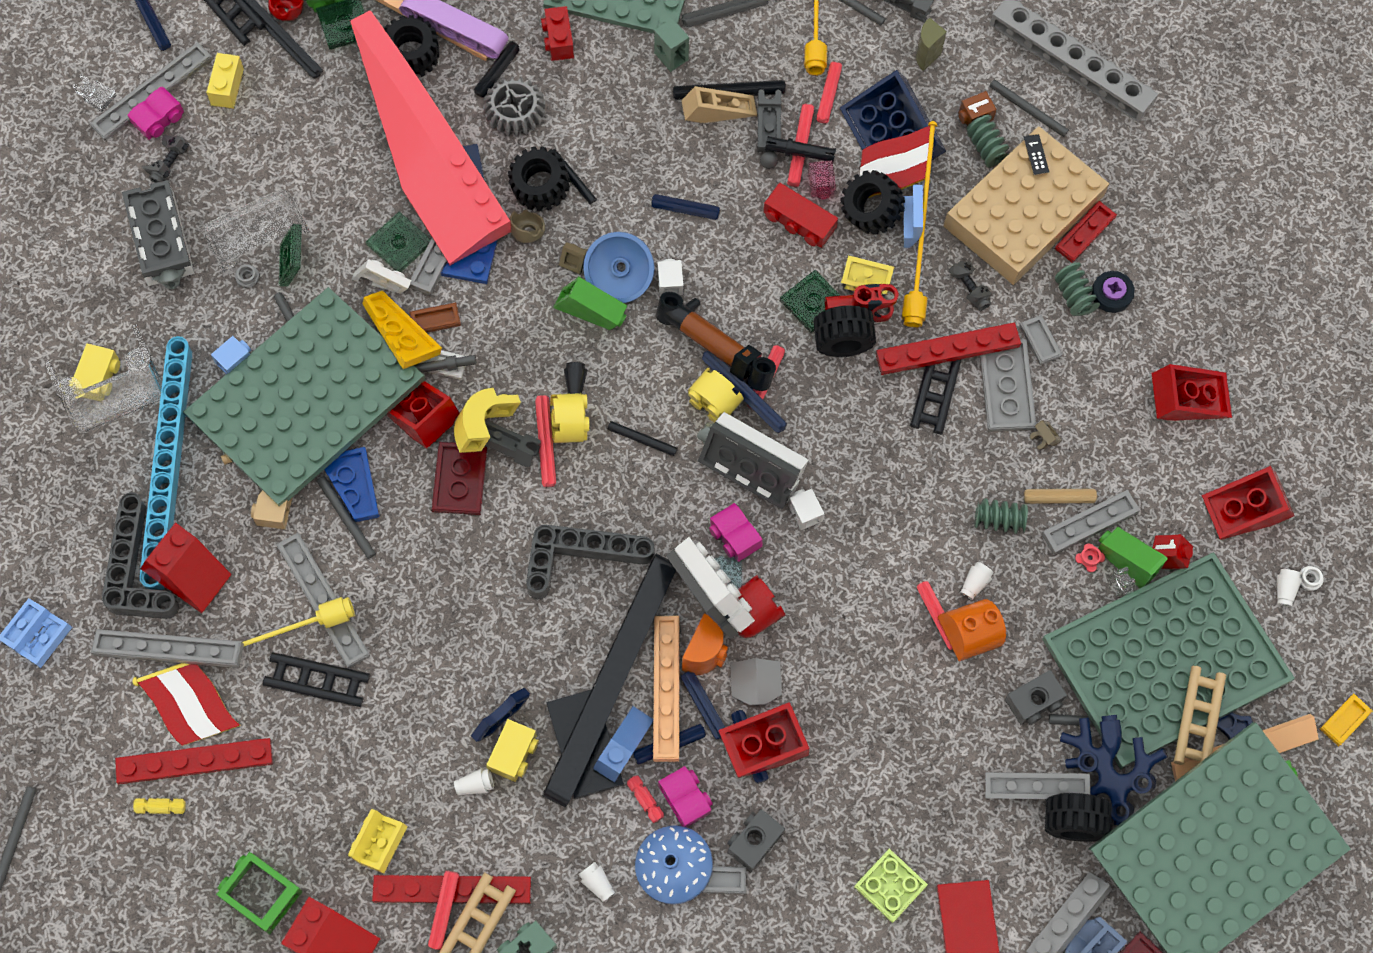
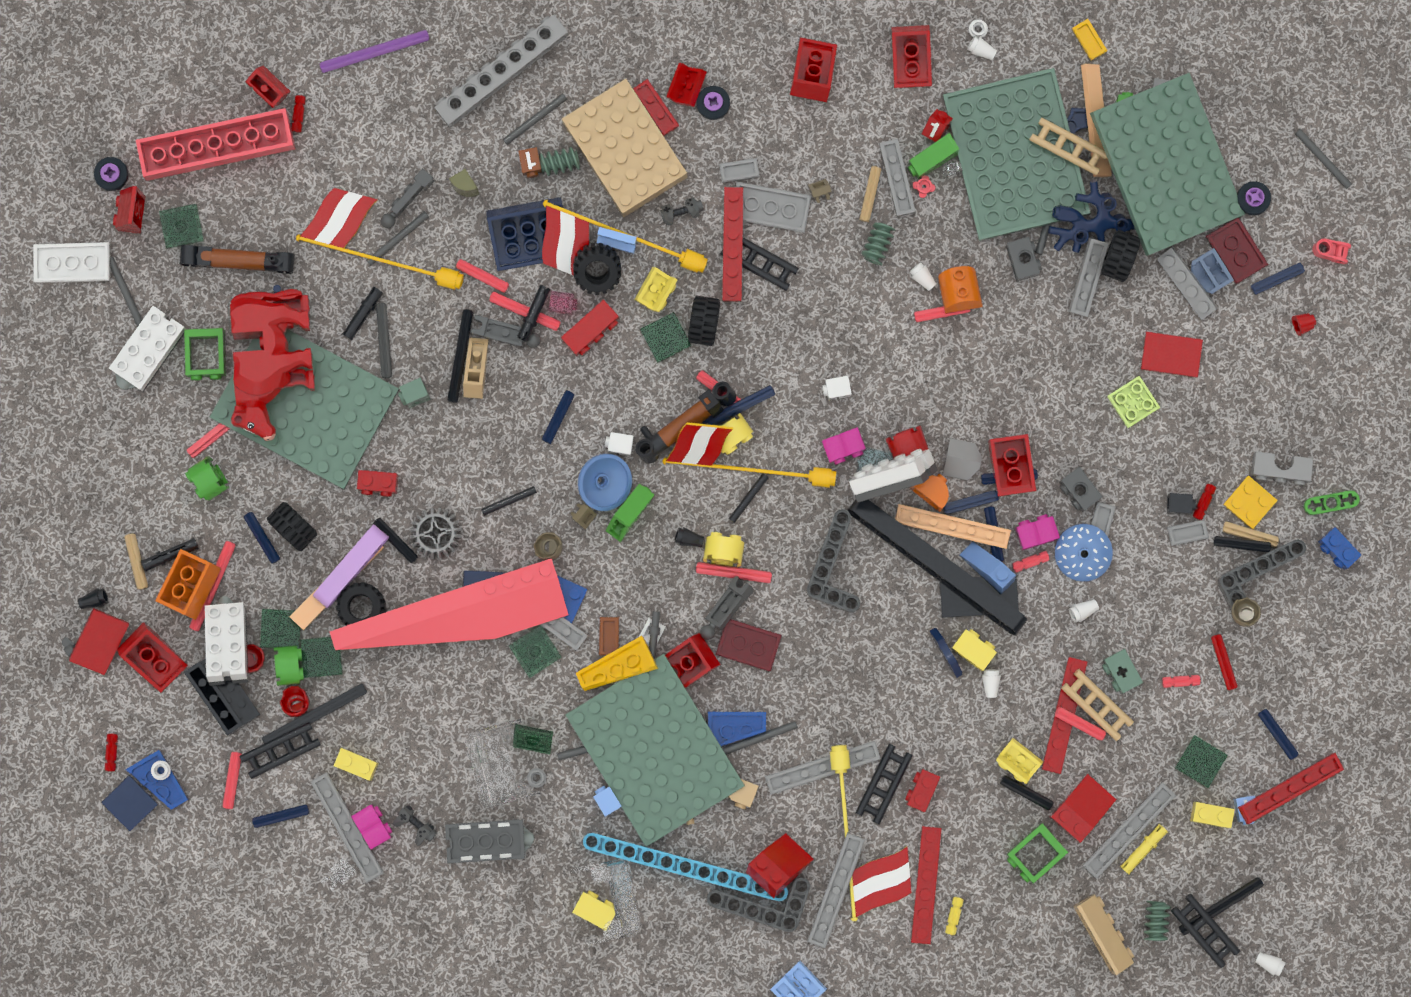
camera: 75 degrees left, 15 degrees up
(315, 726) = (923, 790): none -> red brick
(338, 863) = (1026, 792): none -> black axle
(382, 277) = (564, 673): white wing -> none
(470, 426) = (710, 624): light yellow arch -> none
(532, 163) = (497, 539): black tyre -> none
(688, 360) = (703, 443): none -> flag
(751, 459) = (792, 419): dark grey piece -> none
(868, 297) = (681, 311): red connector -> none
(1036, 154) = (588, 128): black sticker -> none
(1074, 290) = (706, 130): sand green piece -> none
(1124, 254) = (686, 85): none -> red bracket

